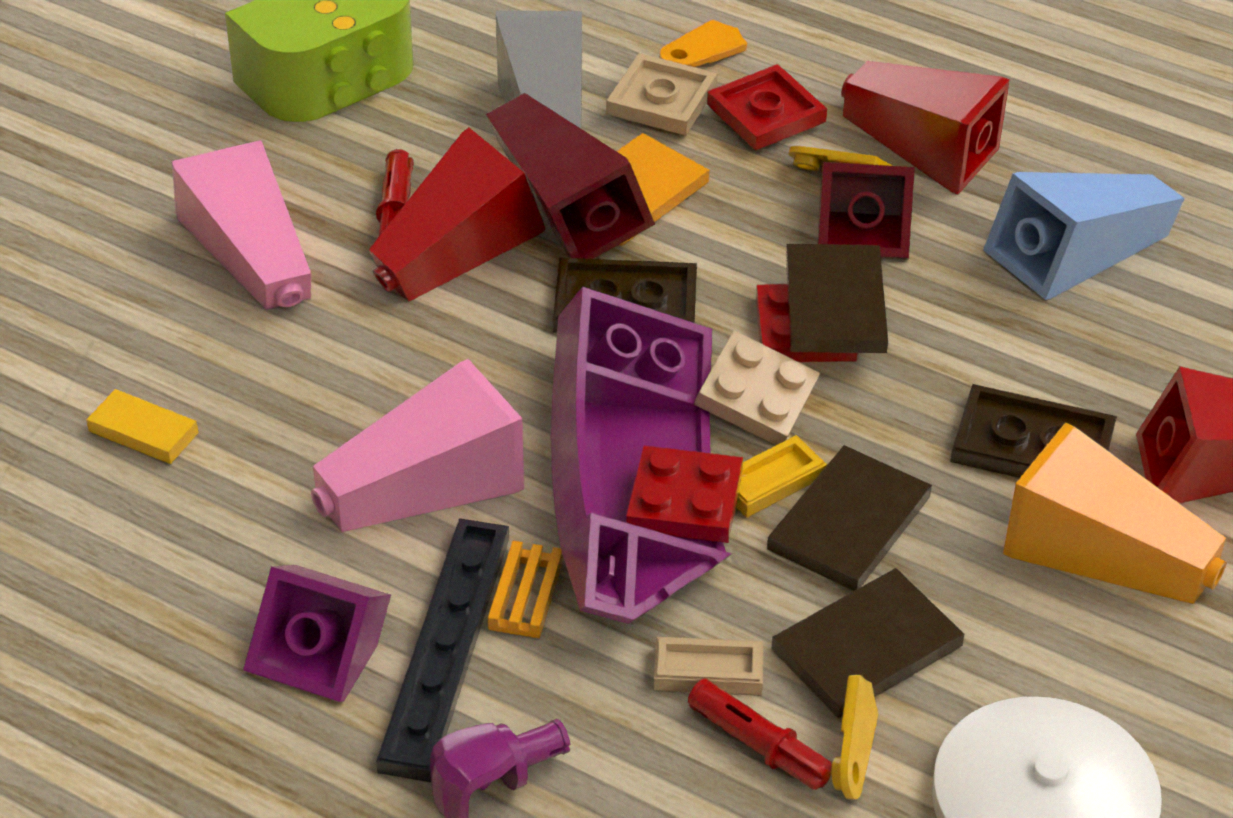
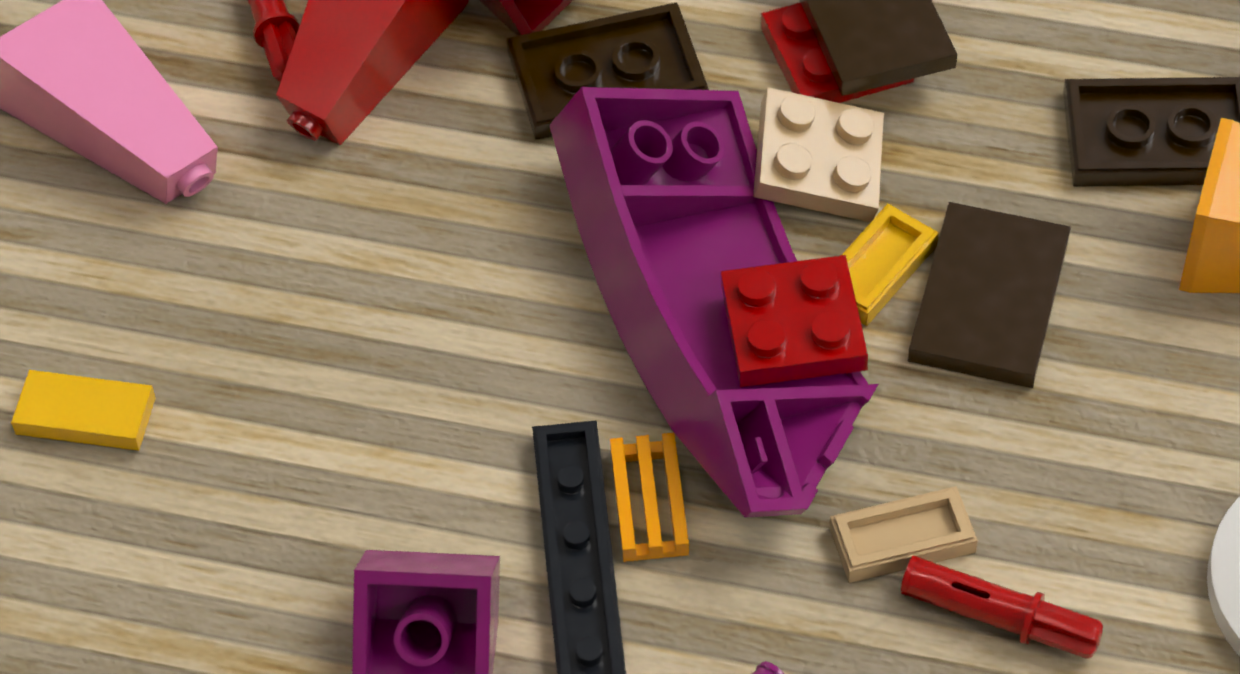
camera: 15 degrees left, 10 degrees up
(429, 454) = (467, 355): bright pink slope -> none
(859, 727) = (1119, 620): yellow piece -> none
(873, 632) = (1073, 451): dark brown tile -> none

